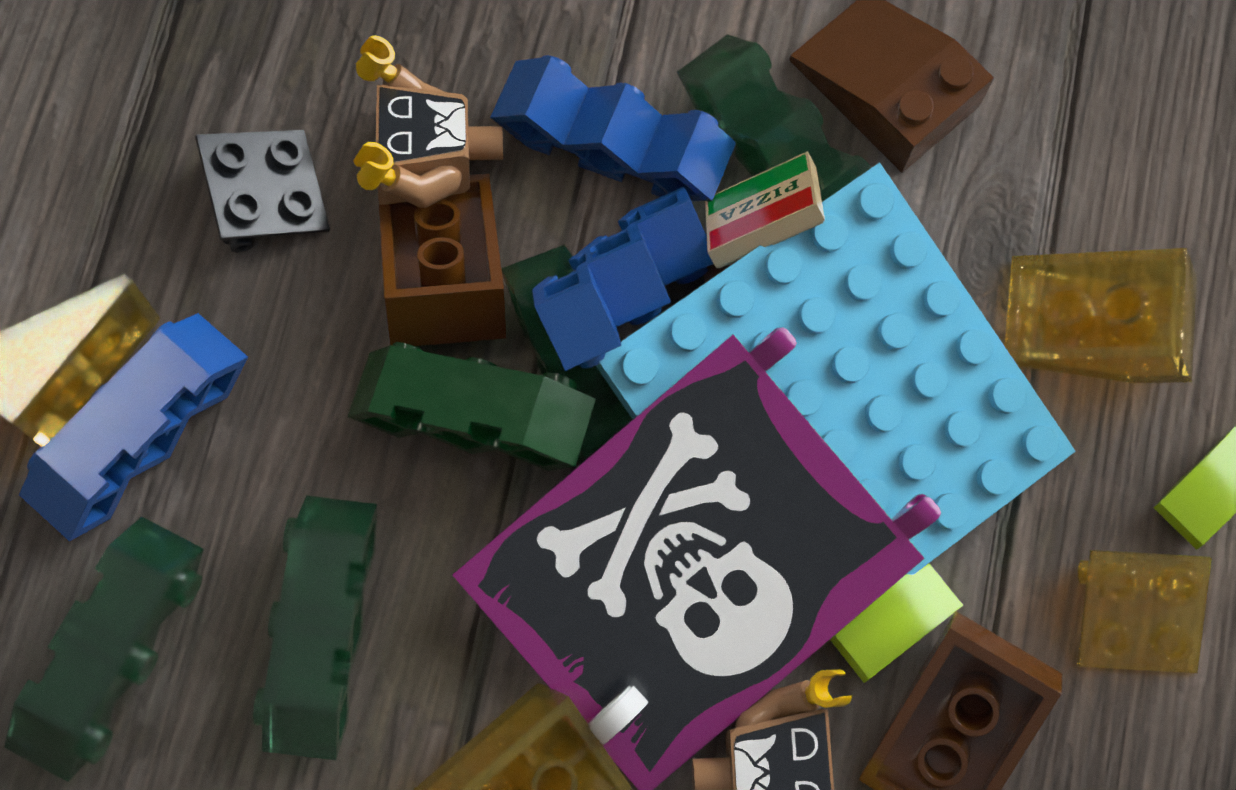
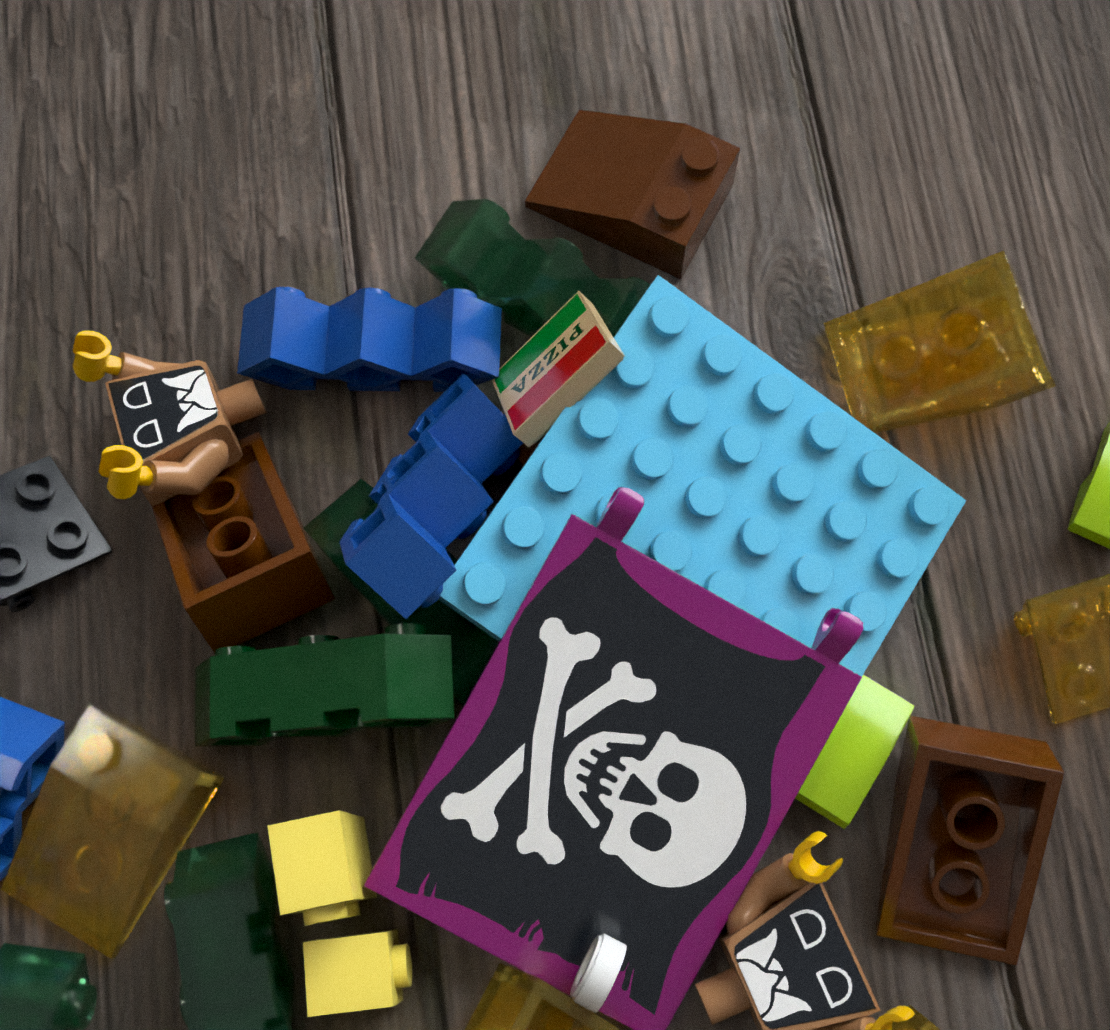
camera: 10 degrees left, 0 degrees up
(252, 457) = (107, 829): none -> clear yellow slope
(418, 645) = (355, 972): none -> light yellow brick
(423, 548) = (321, 866): none -> light yellow brick

